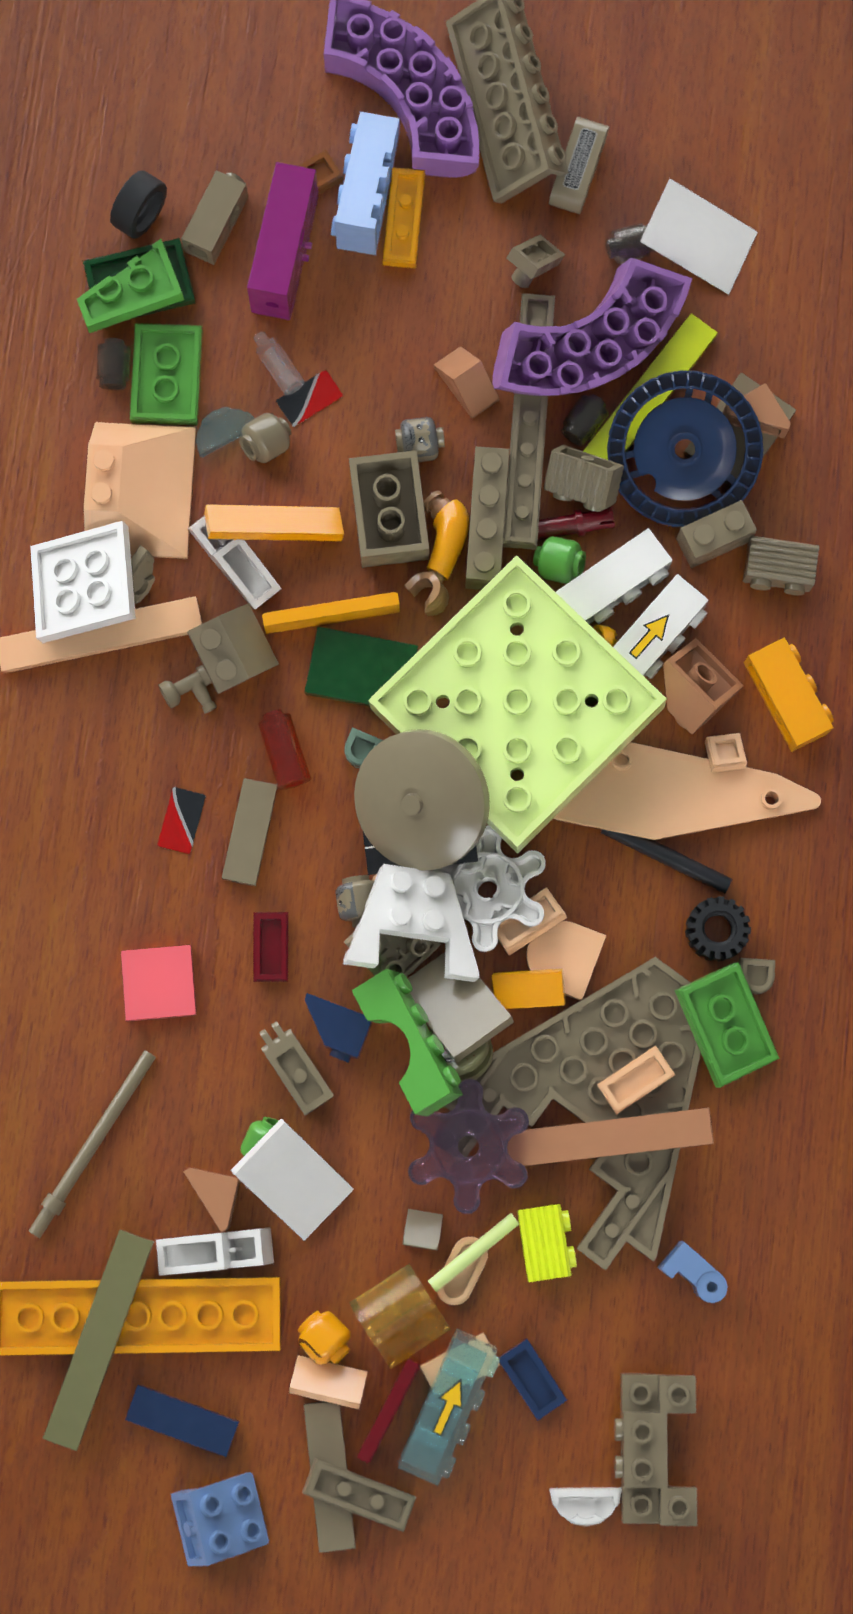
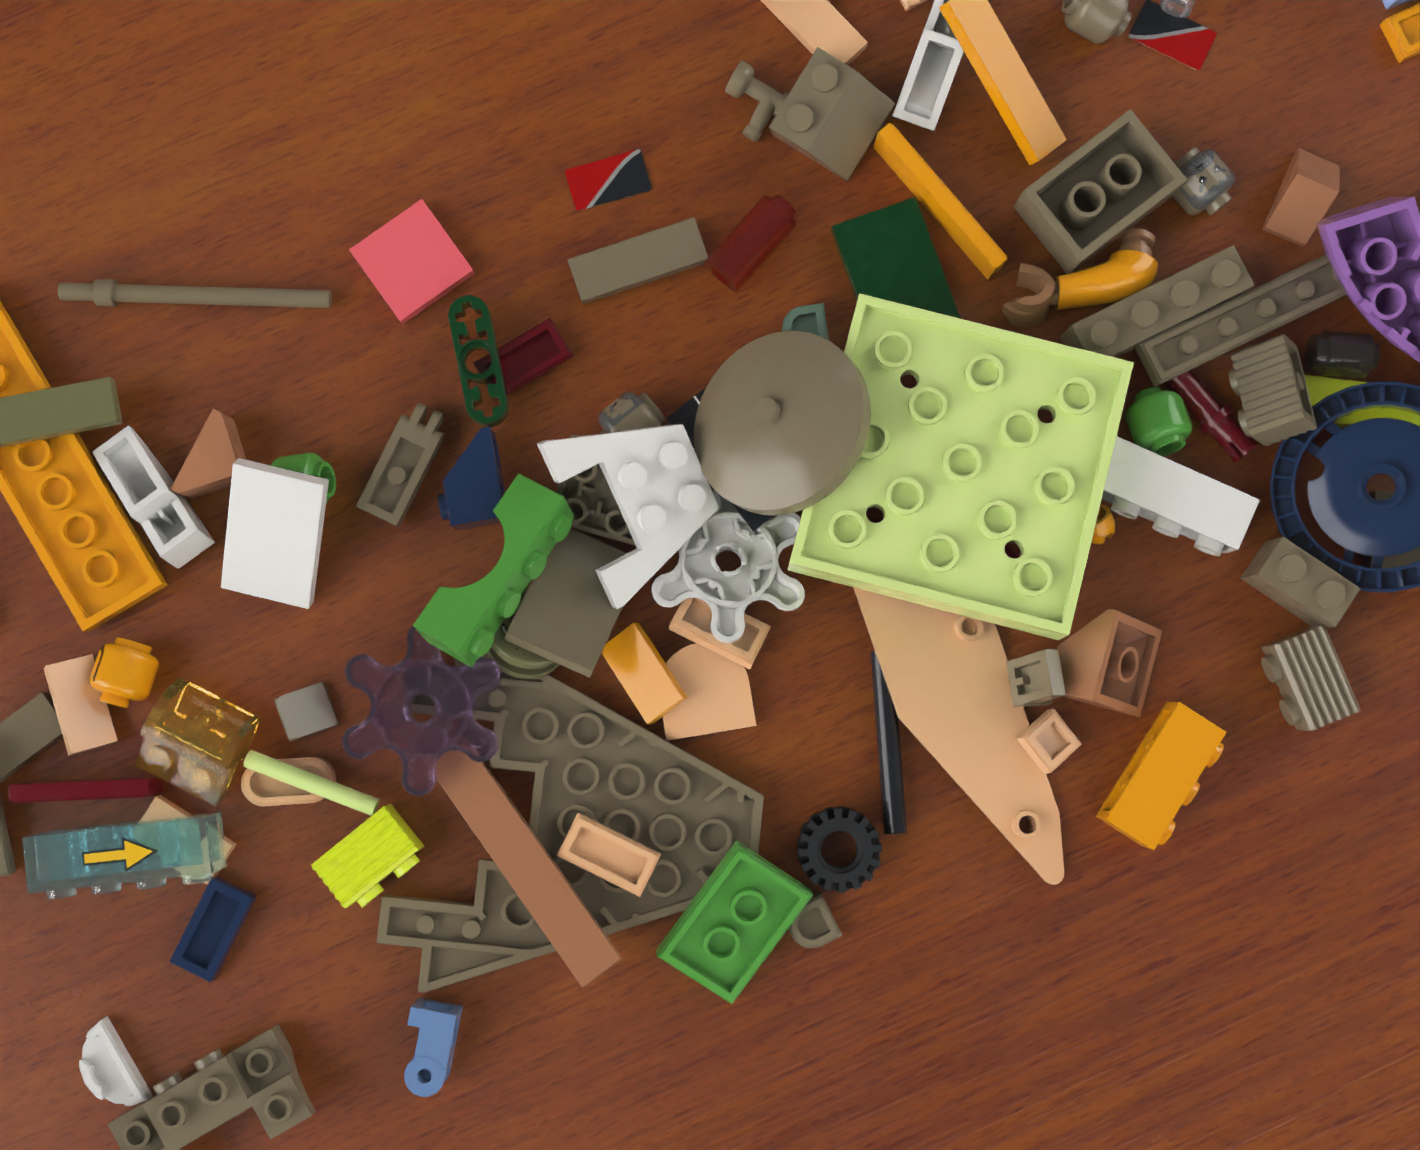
camera: 60 degrees right, 5 degrees up
(228, 976) = (484, 327): none -> dark green beam
(662, 626) = (1152, 583): white brick -> none
(681, 736) = (1036, 678): none -> dark tan bracket

